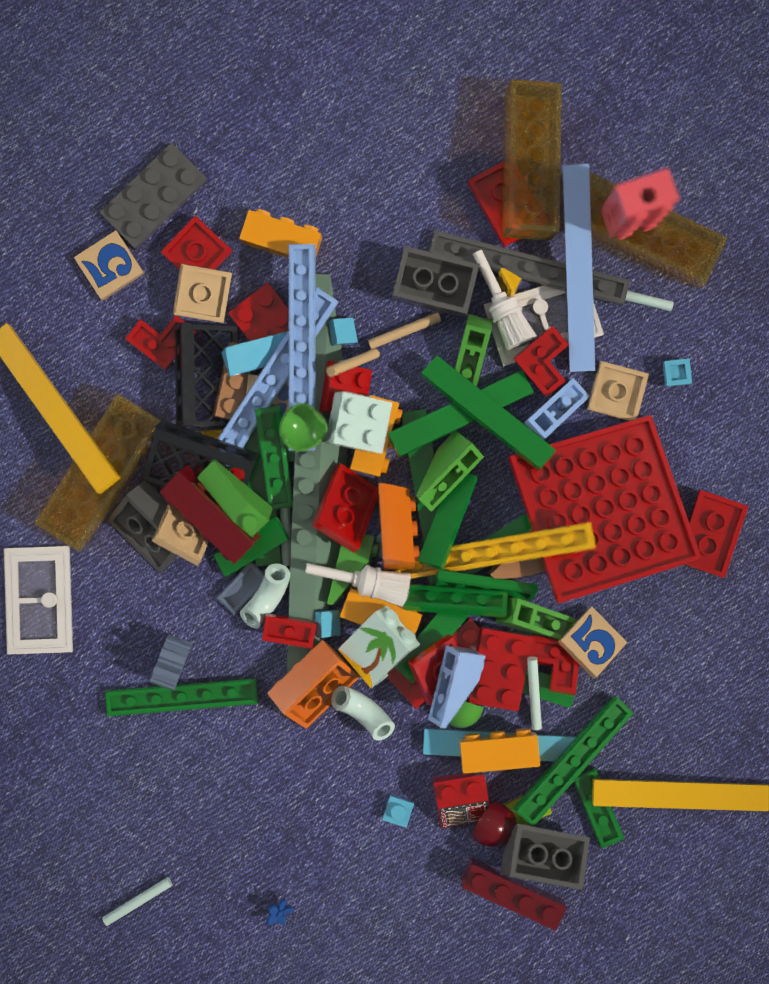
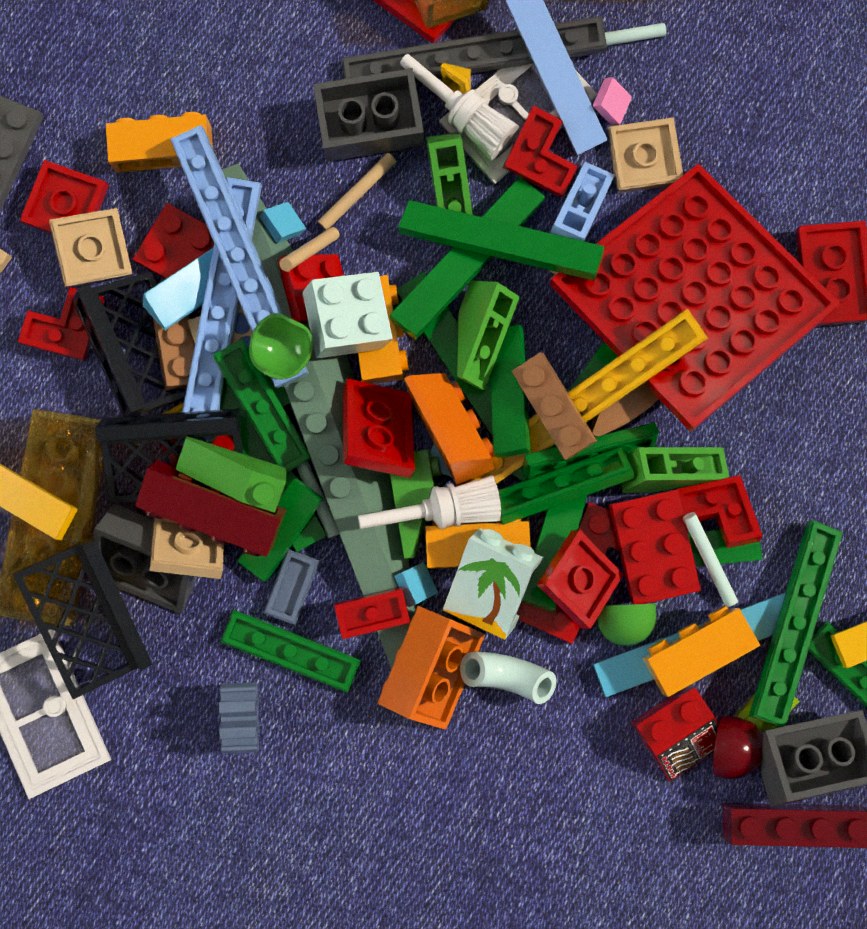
camera: 25 degrees left, 5 degrees down
(116, 554) = (111, 602): none -> black fence
(184, 697) = (272, 758): green tile -> none
(223, 630) = (290, 650): none -> green tile
(267, 596) = (326, 582): light aqua cylinder -> none
(398, 810) = (606, 783): medium azure plate -> none
(456, 680) = (608, 583): light blue slope -> none
(472, 545) = (554, 406): none -> medium nougat plate
(592, 642) = (753, 466): tan tile -> none
(610, 344) = (612, 101): none -> bright pink tile
(677, 372) = (706, 101): medium azure plate -> none

